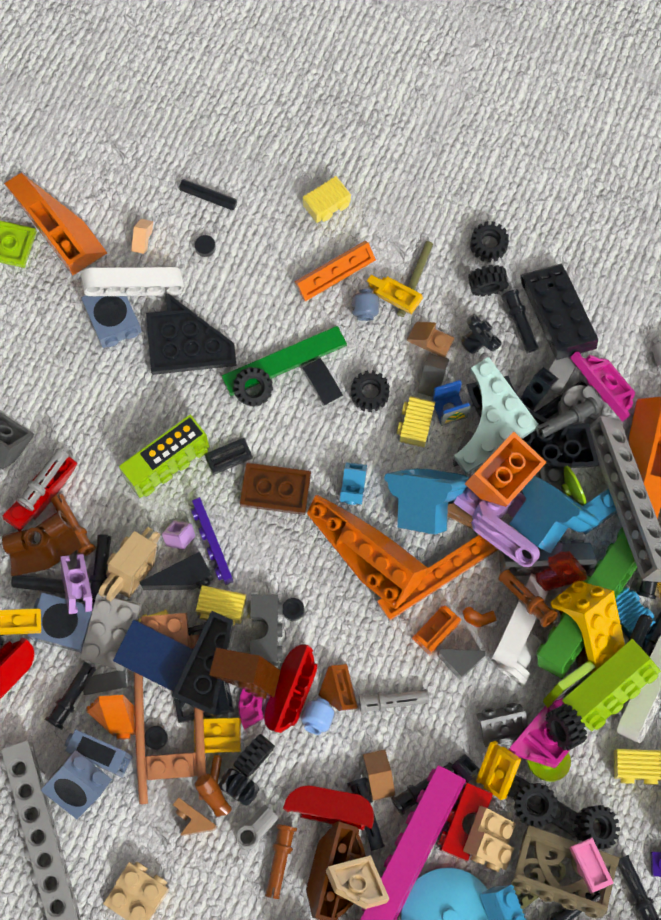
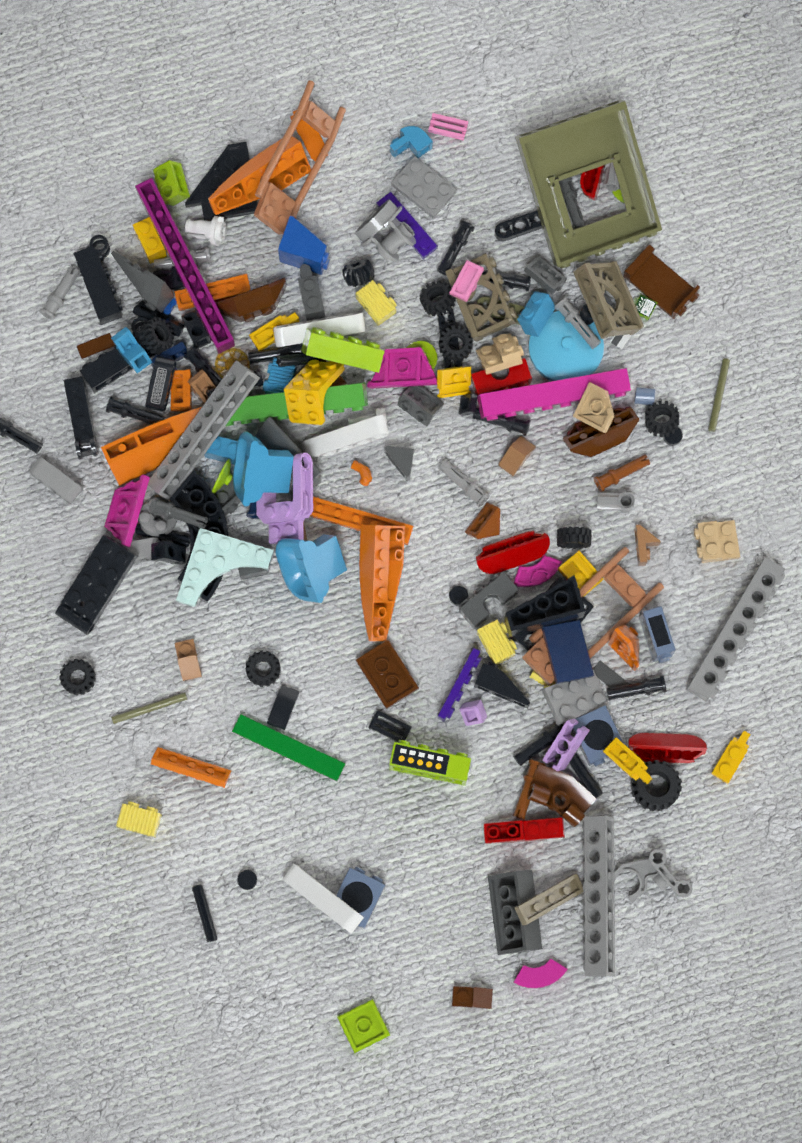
camera: 130 degrees left, 5 degrees up
(34, 486) = (526, 827): light grey pin -> none
(58, 225) = (320, 1003): orange wedge -> none
(76, 784) = (688, 628): sand blue brick -> none
(130, 564) = (522, 719): tan brick -> none
(141, 234) = (278, 930): light nougat piece -> none
(156, 737) = (614, 612): black tile -> none
(185, 341) = (333, 828): black wing -> none
(209, 789) = (617, 548): dark orange piece -> none
(239, 786) = (601, 531): black gear -> none
(243, 377) = (332, 740): black tyre -> none
(246, 672) = (530, 577): reddish brown wedge -> none
(317, 716) = (514, 520): light blue head -> none
(330, 806) = (563, 465): red brick -> none
(353, 483) = (341, 623): dark azure brick -> none
(365, 305) = (201, 723): sand blue head -> none
(374, 841) = (543, 451): black pin -> none
(395, 293) = (175, 708): yellow hinge -> none
(417, 421) = (259, 618): light yellow brick -> none
(432, 374) = (213, 636): dark grey slope -> none
(436, 629) = (394, 492): orange hinge -> none
(449, 394) = (229, 595): blue piece -> none
(479, 336) = (159, 623): black plate -> none
(488, 280) = (112, 650): black tyre -> none
(506, 471) = (256, 518): orange slope -> none
(517, 312) = (119, 614): black pin -> none
(535, 605) = (330, 435): dark orange pin -> none
(563, 571) = (294, 434): clear red plate -> none
(566, 727) = (394, 357): black tyre -> none
(568, 683) = (358, 376): lime tile -> none

